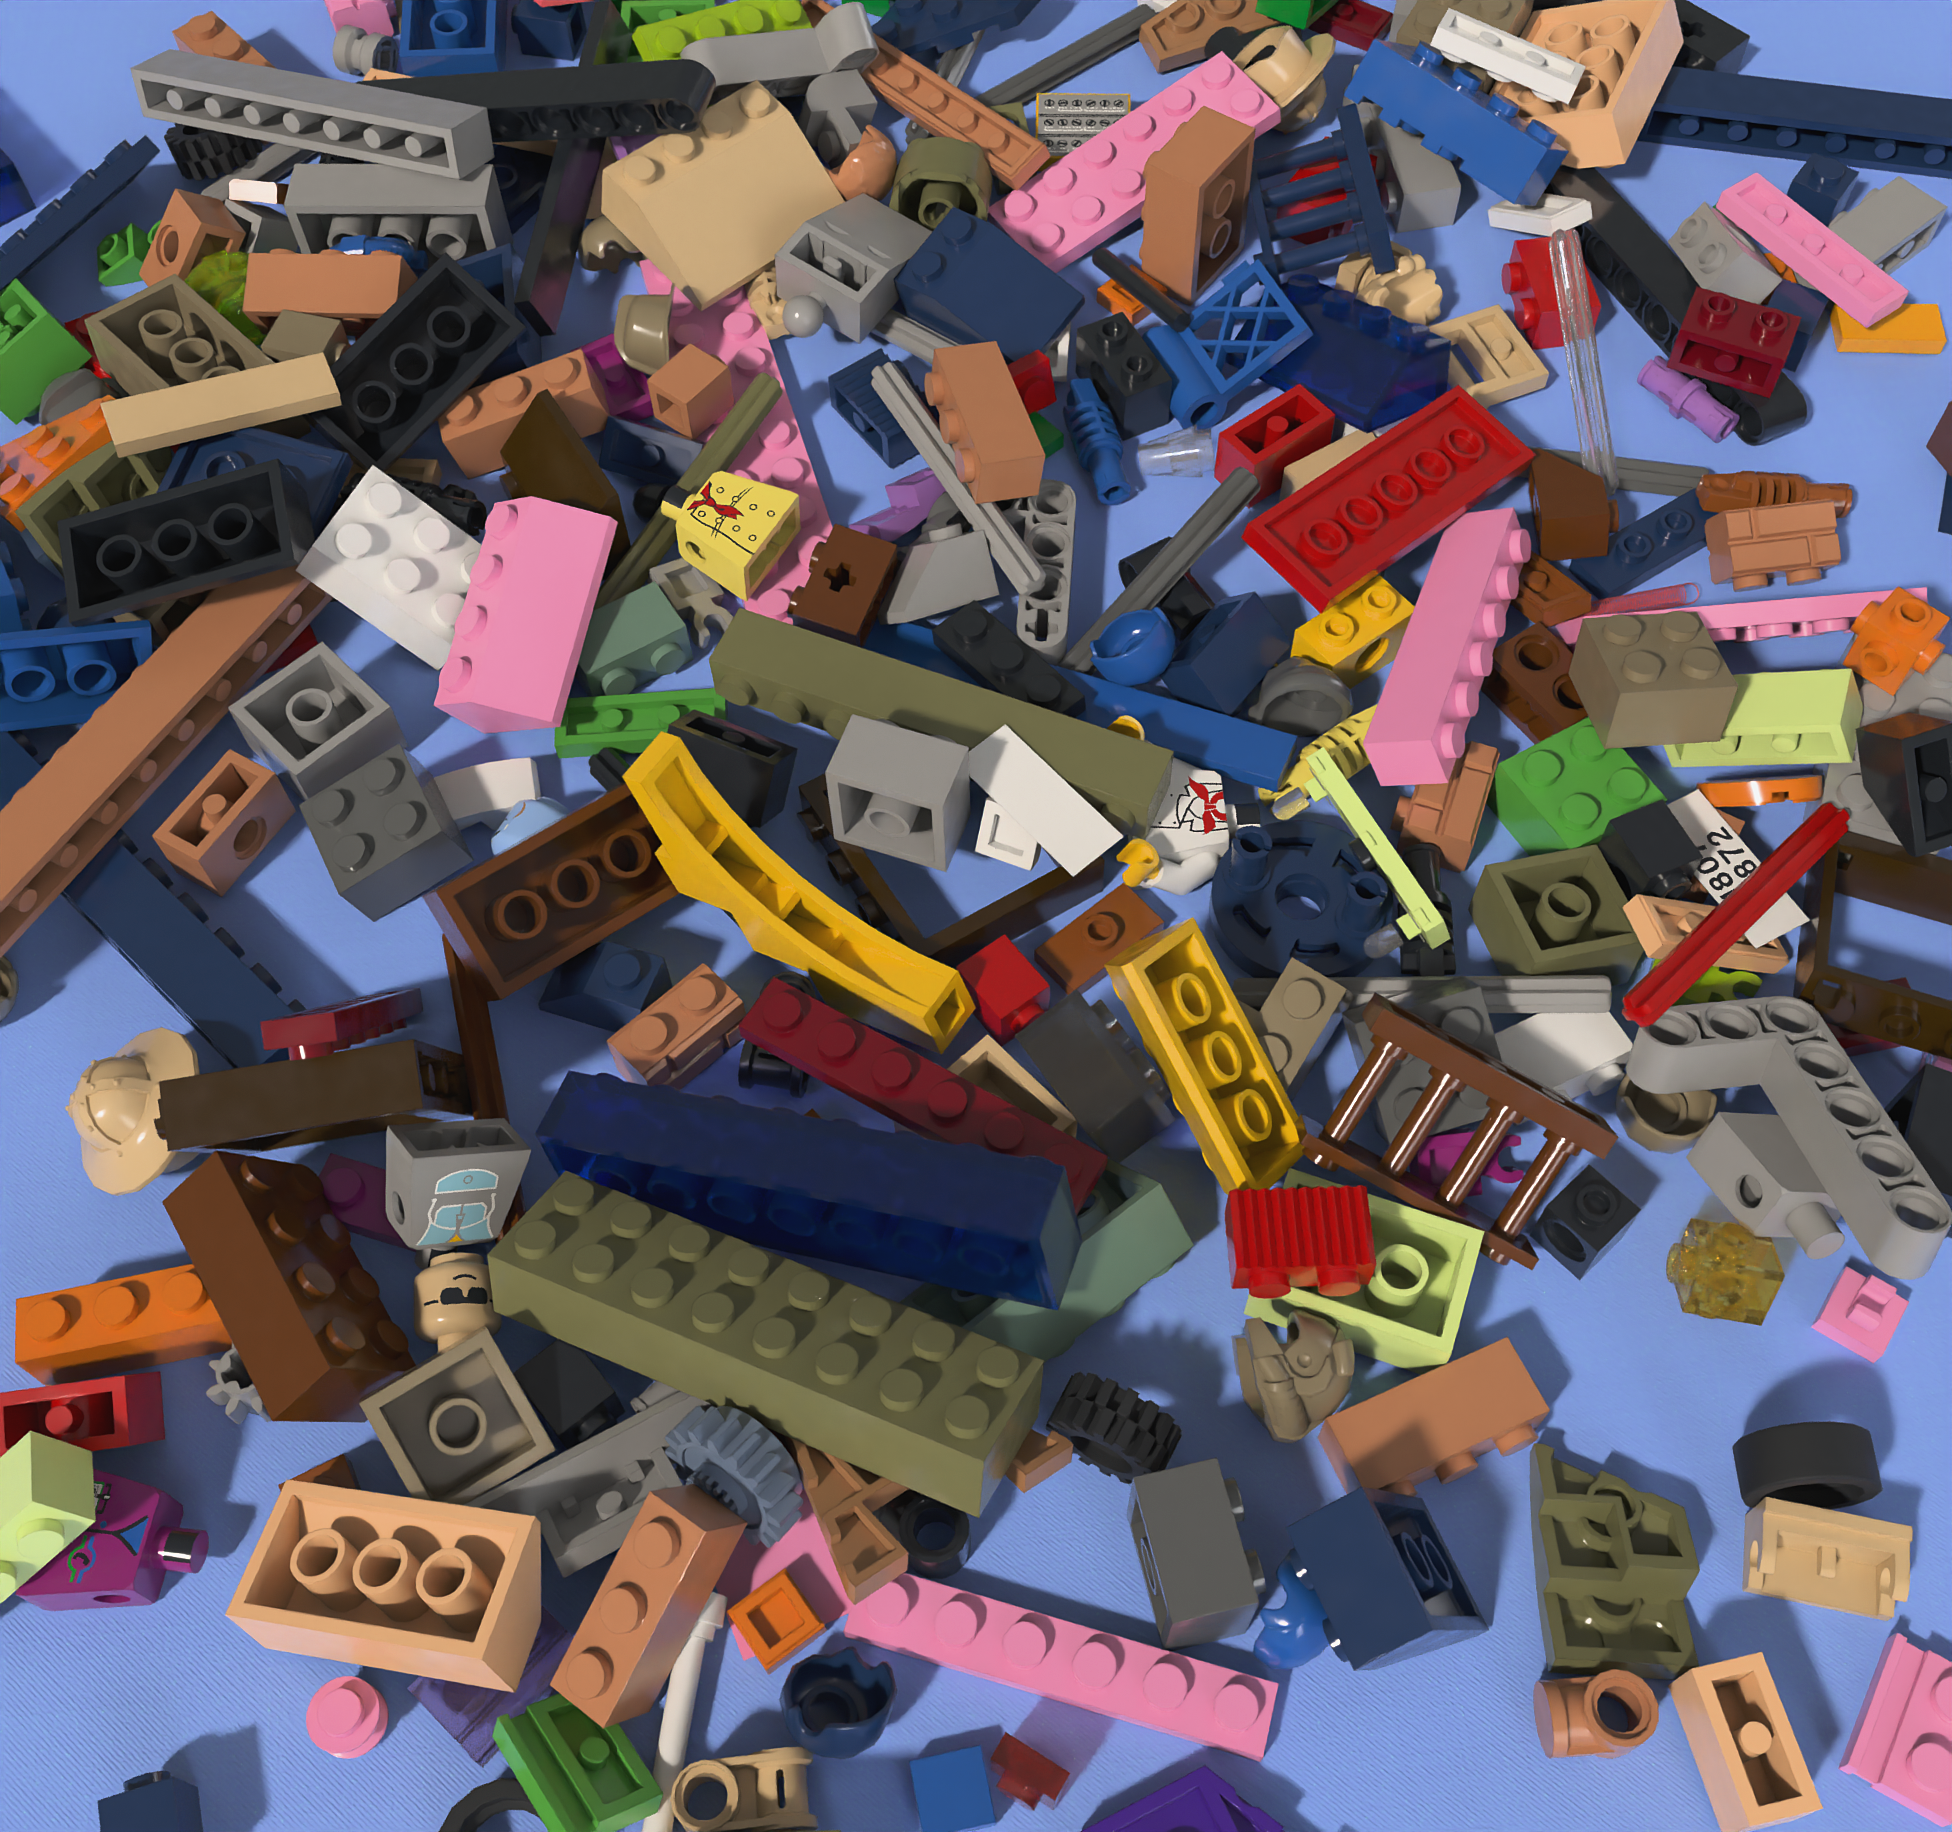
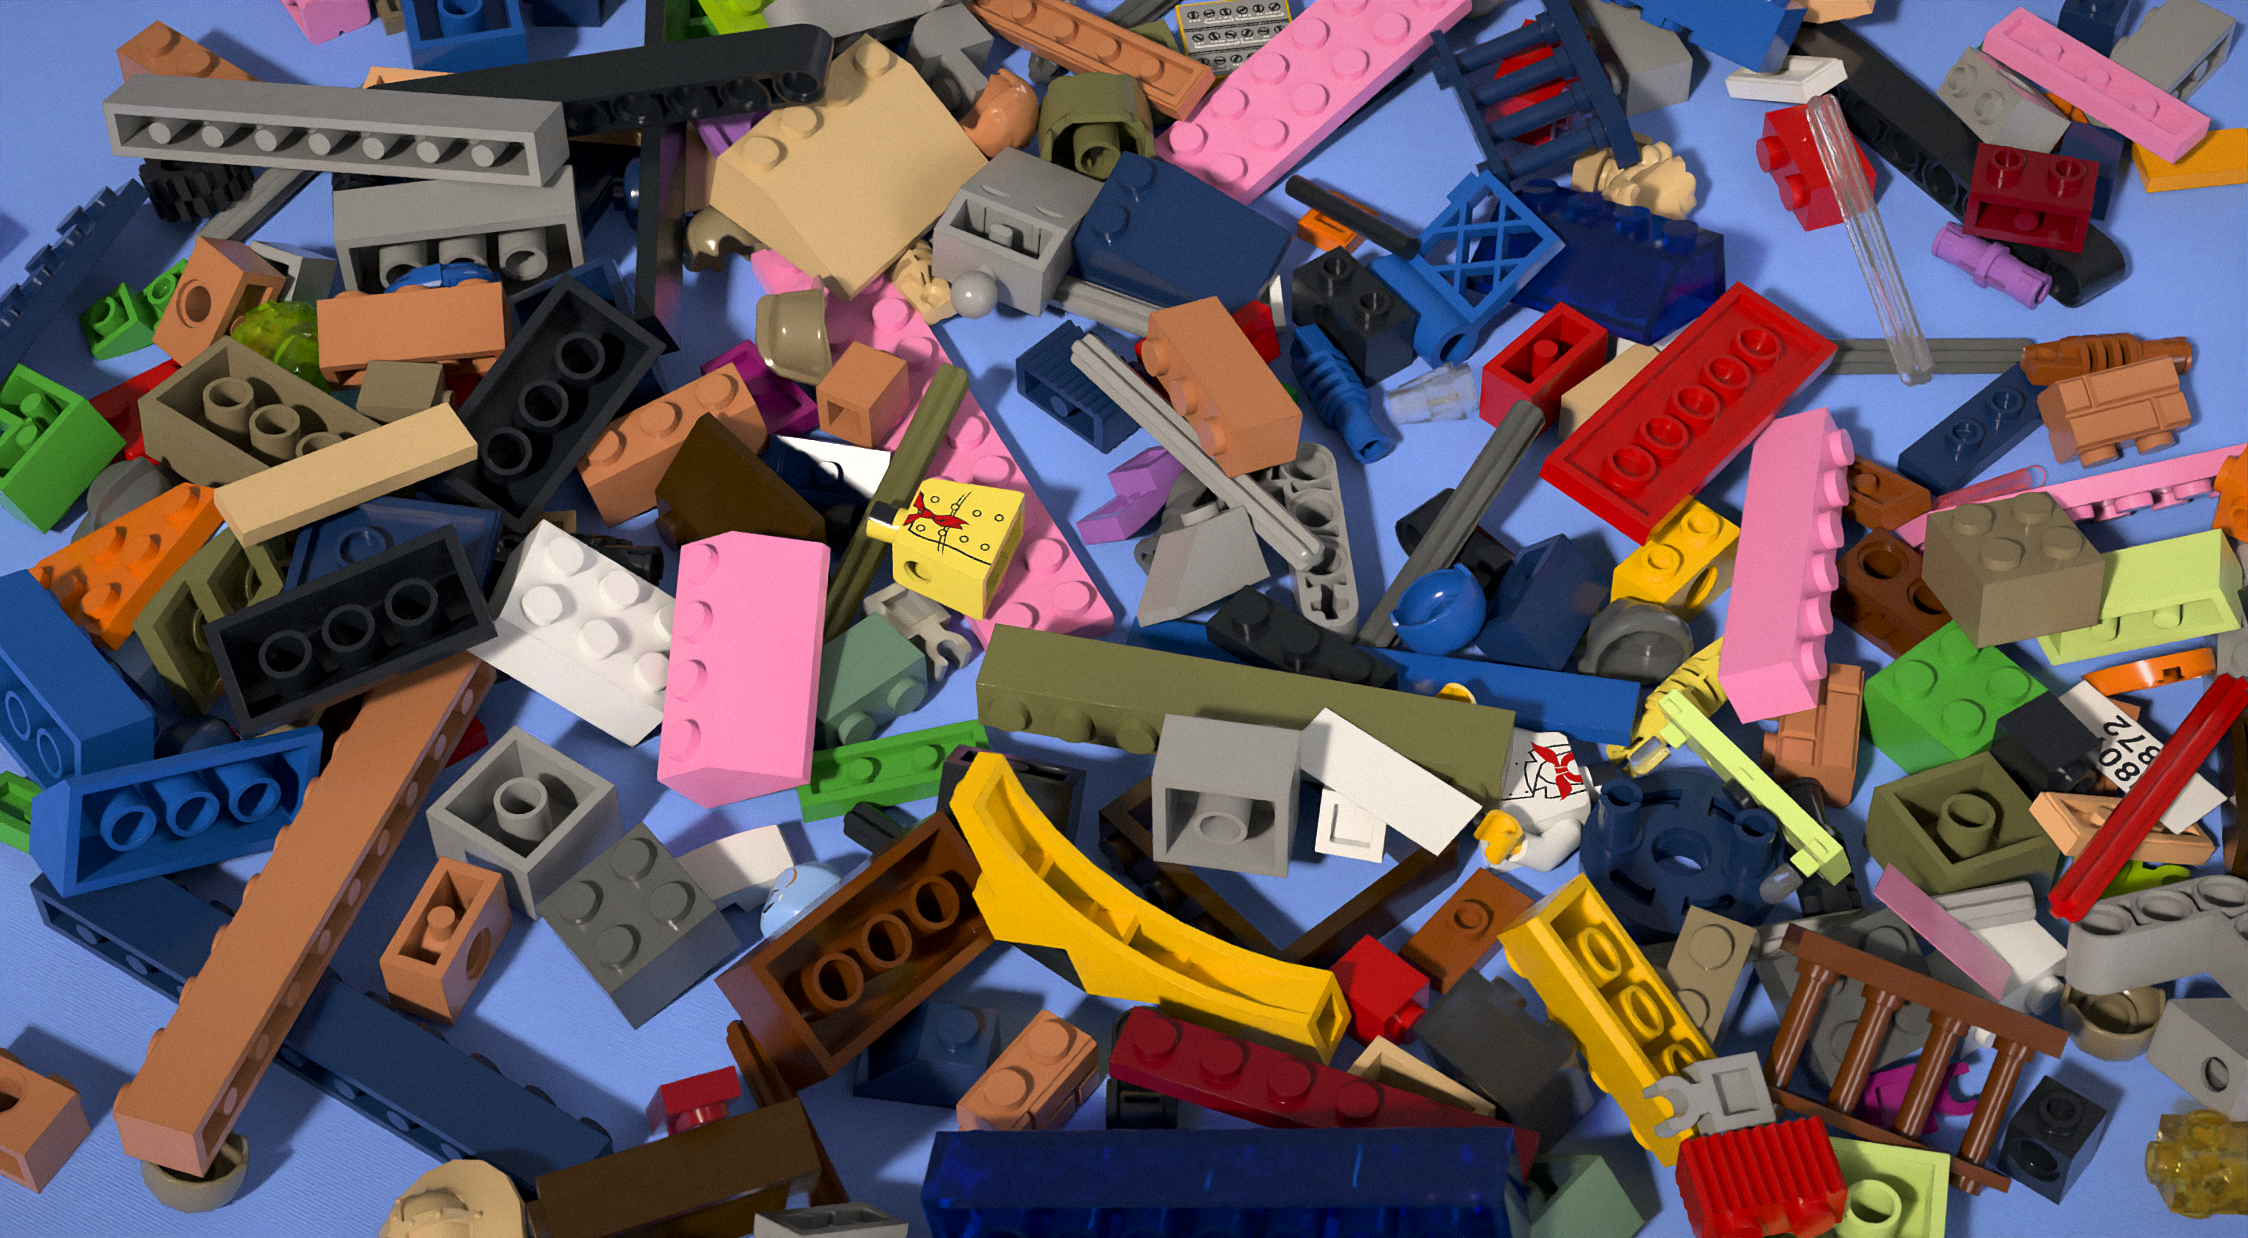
camera: 10 degrees left, 10 degrees down
(258, 191) = (292, 227): tile -> none
(358, 52) = (347, 48): light grey wheel -> none
(845, 586) = (1099, 584): reddish brown brick -> none
(1196, 203) = (1399, 114): nougat brick -> none
(1274, 1151) = (1717, 1095): none -> light grey plate
(1496, 353) = (1769, 241): tan plate -> none
(1518, 1018) = (1943, 931): none -> bright pink sticker
(1569, 509) = (1885, 402): reddish brown slope -> none

